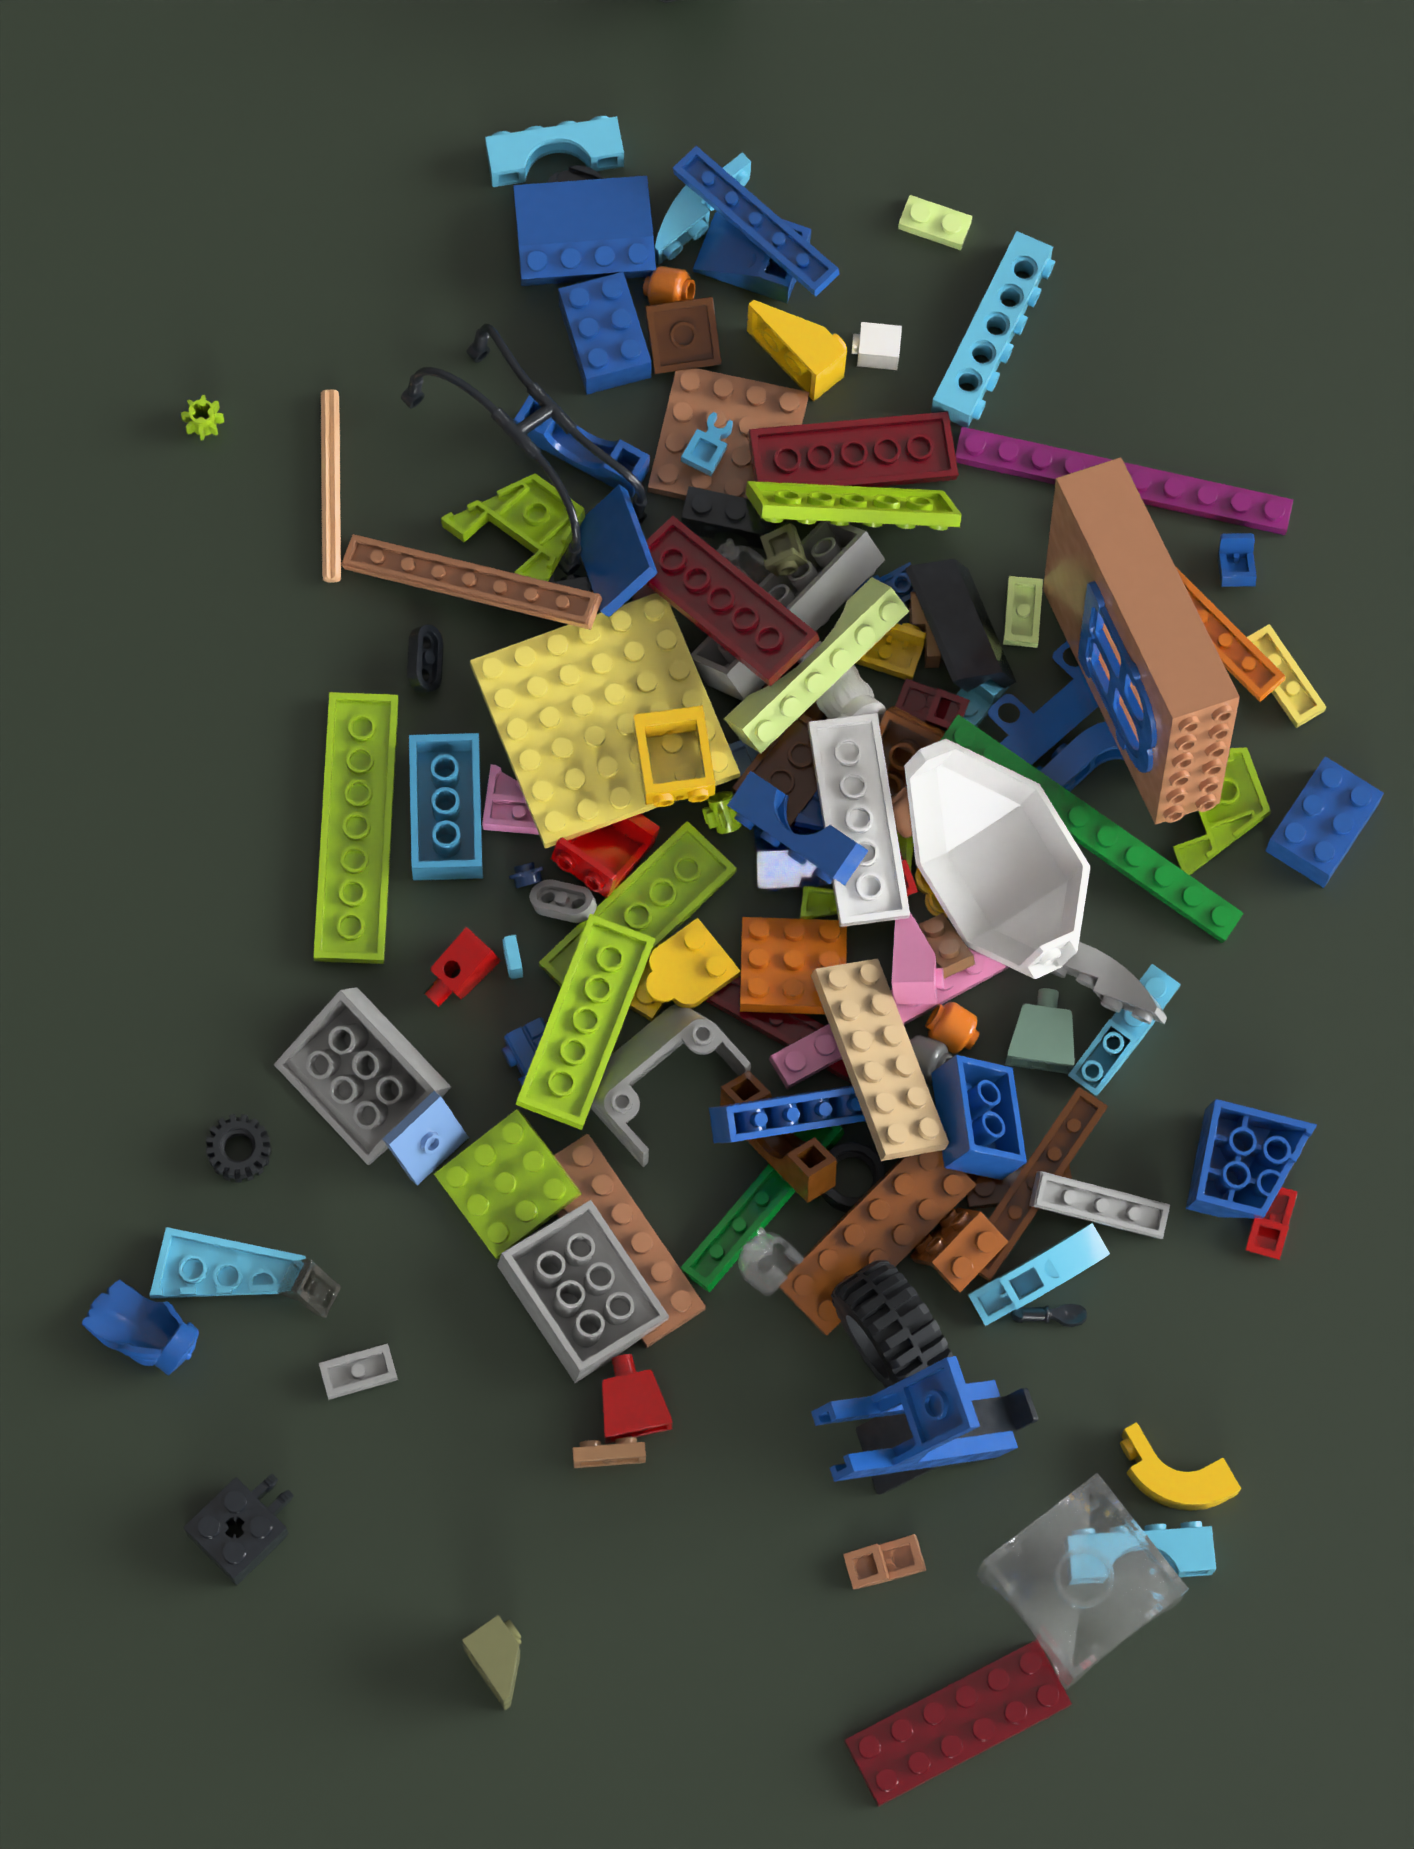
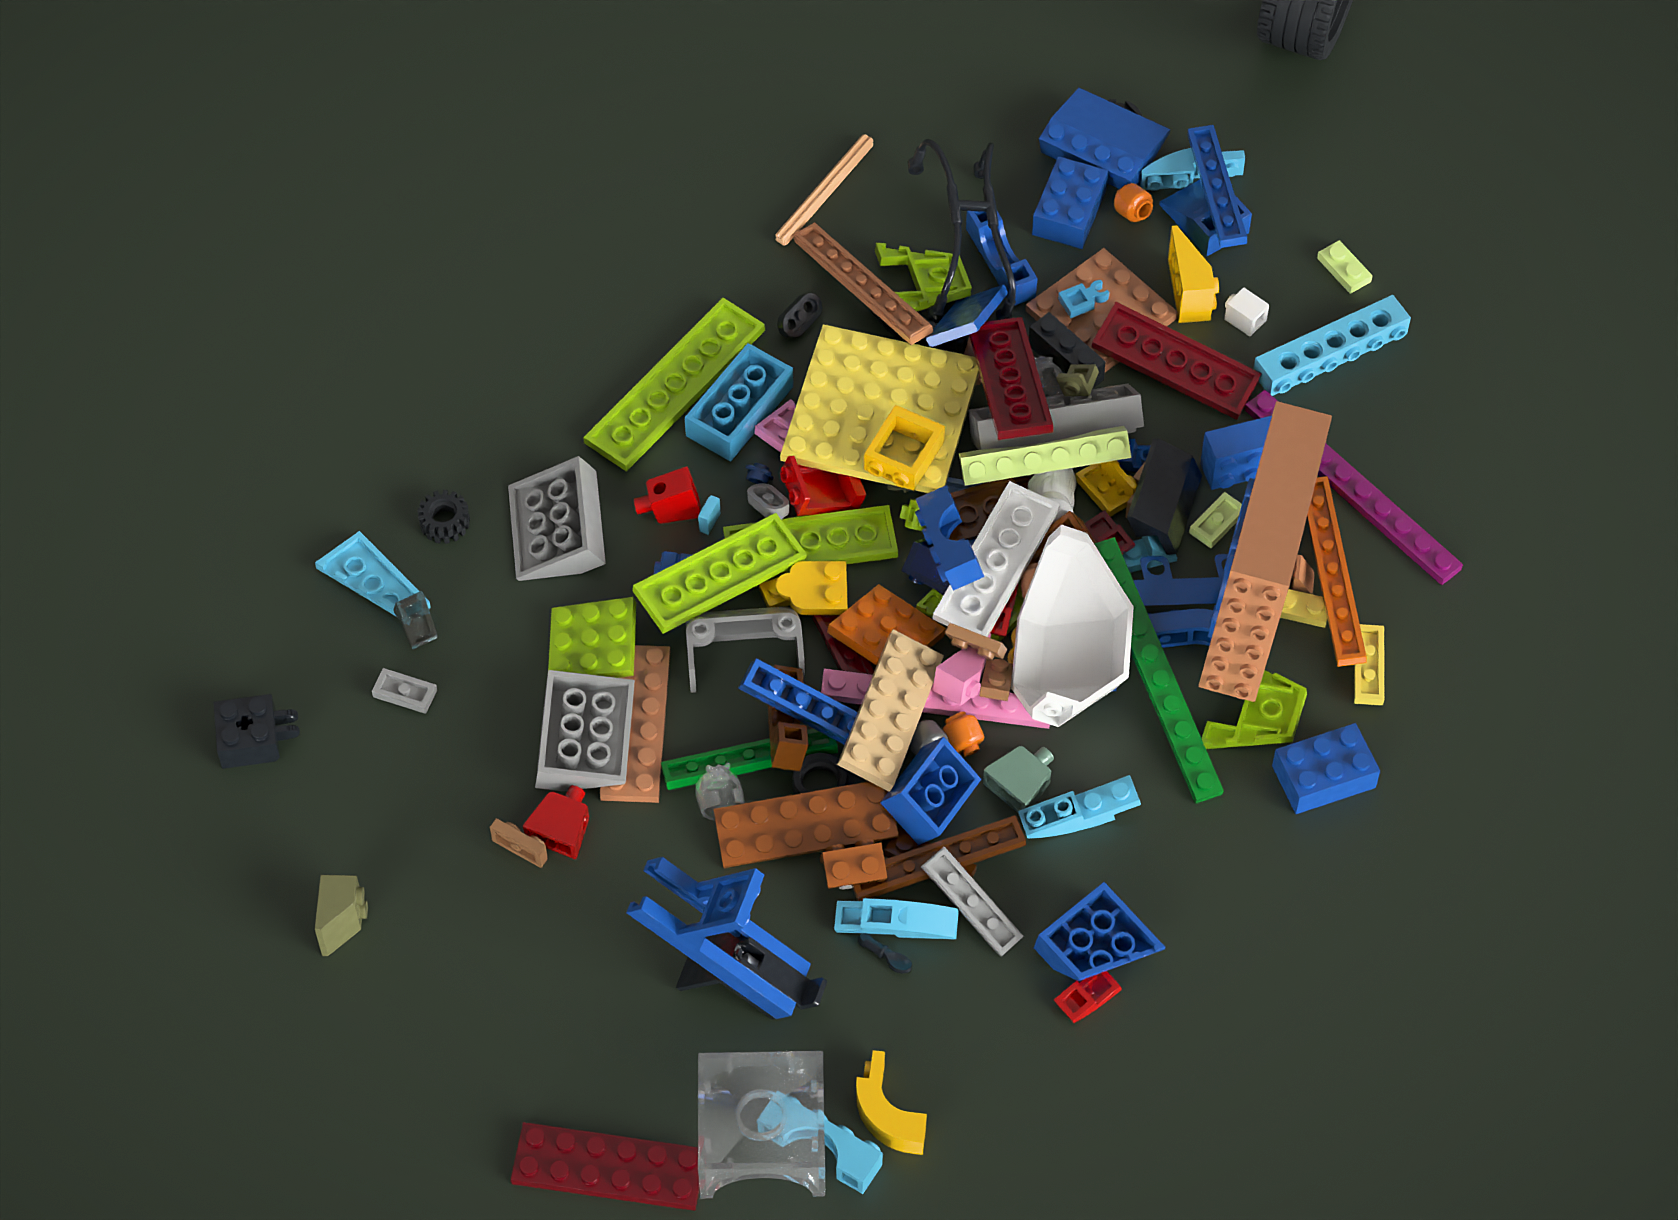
camera: 40 degrees right, 15 degrees down
(141, 1328) = (293, 578): blue hair -> none
(204, 409) = (776, 106): lime gear -> none
(425, 1138) = (561, 578): medium blue plate -> none
(592, 141) = (1098, 75): medium azure arch -> none
(683, 334) = (1120, 230): reddish brown plate -> none
(853, 504) = (1138, 375): lime plate -> none
(884, 1562) = (642, 1032): nougat slope -> none
(888, 1323) = (766, 848): black tyre -> none
(892, 930) = (986, 646): none -> medium nougat plate
(1004, 517) = (1233, 452): none -> blue brick
(1112, 984) = (1088, 763): light grey slope -> none
(1237, 560) = (1392, 575): blue bracket -> none

